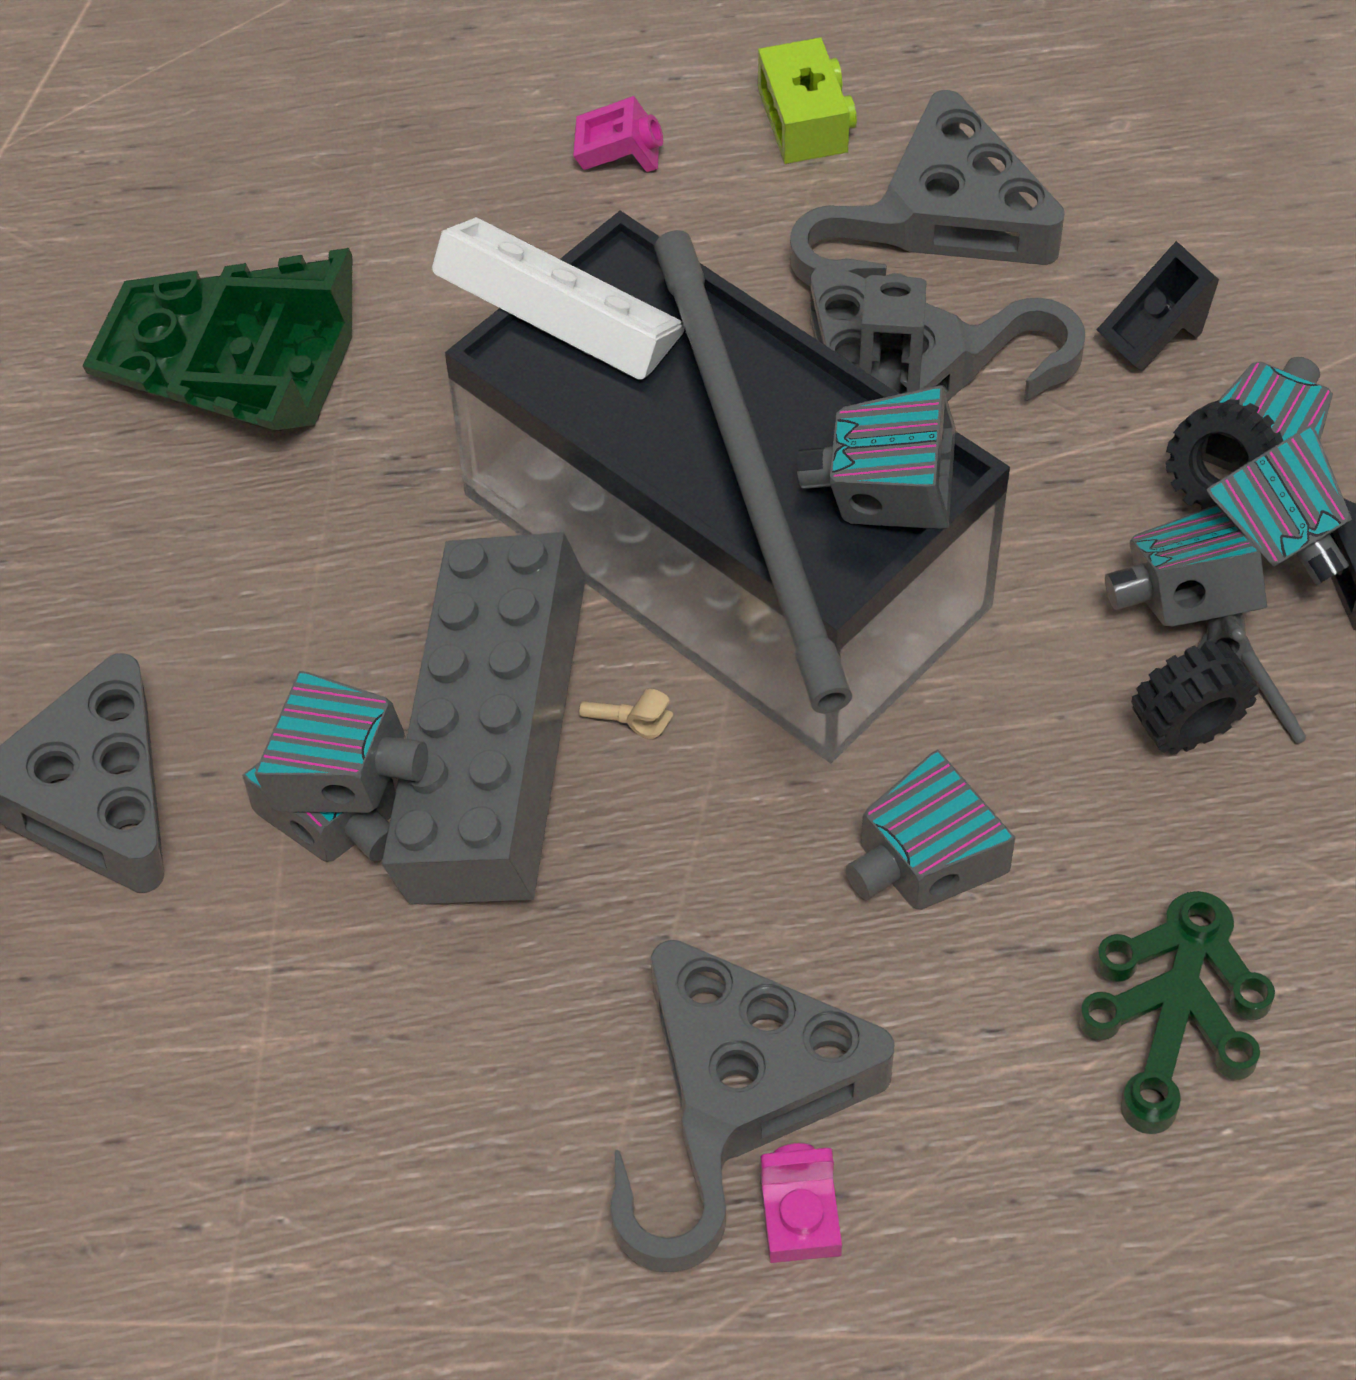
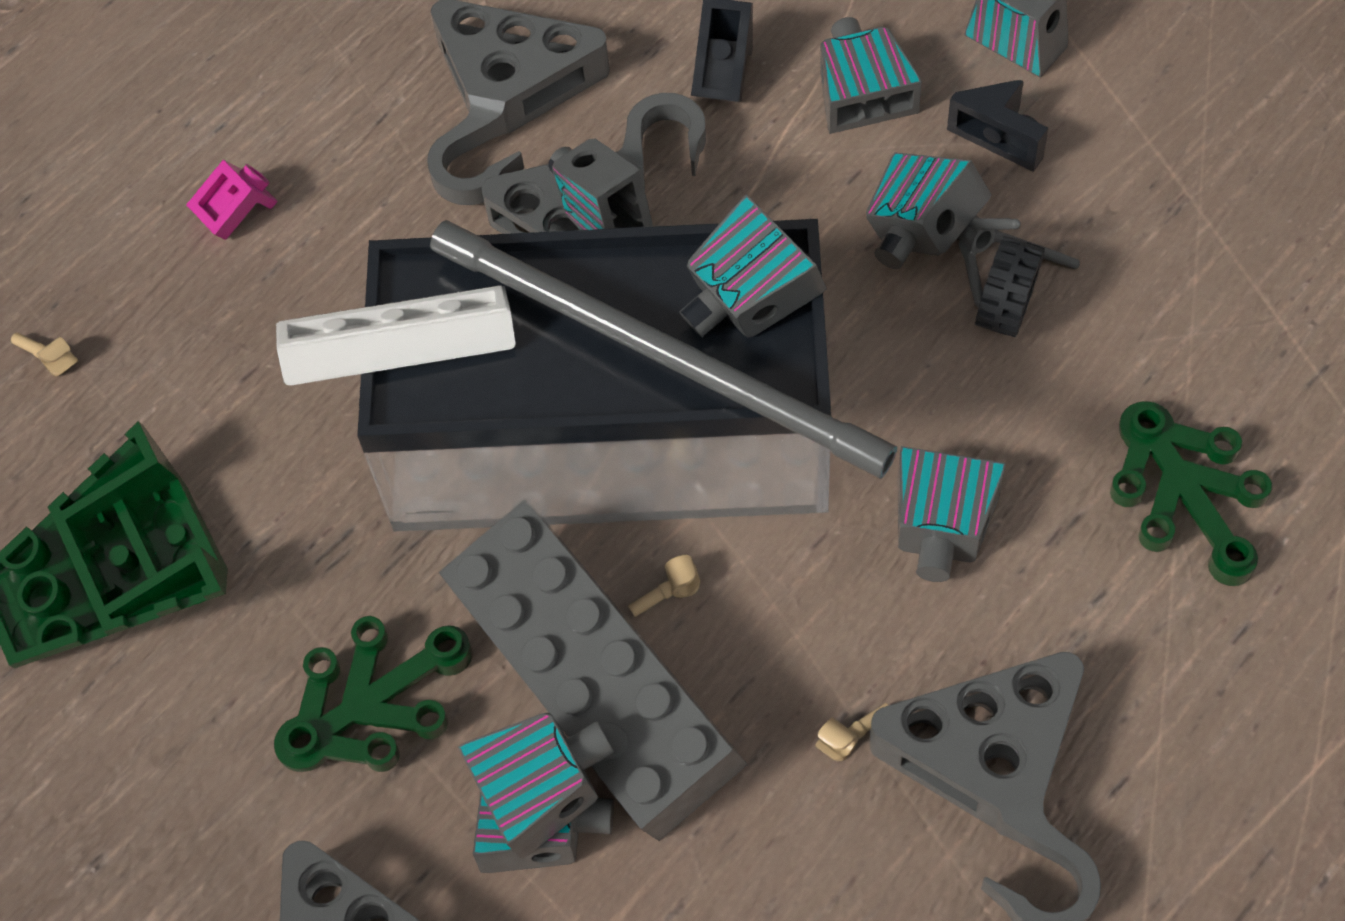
camera: 40 degrees left, 5 degrees up
(305, 602) = (367, 702): none -> dark green plant
(360, 163) = (54, 356): none -> tan hand
(631, 946) = (838, 740): none -> tan hand
(800, 1203) = (1114, 809): dark pink bracket -> none
(805, 100) = (336, 78): lime brick -> none
(1211, 419) = (849, 96): black tyre -> none
(1288, 504) = (948, 115): torso -> none

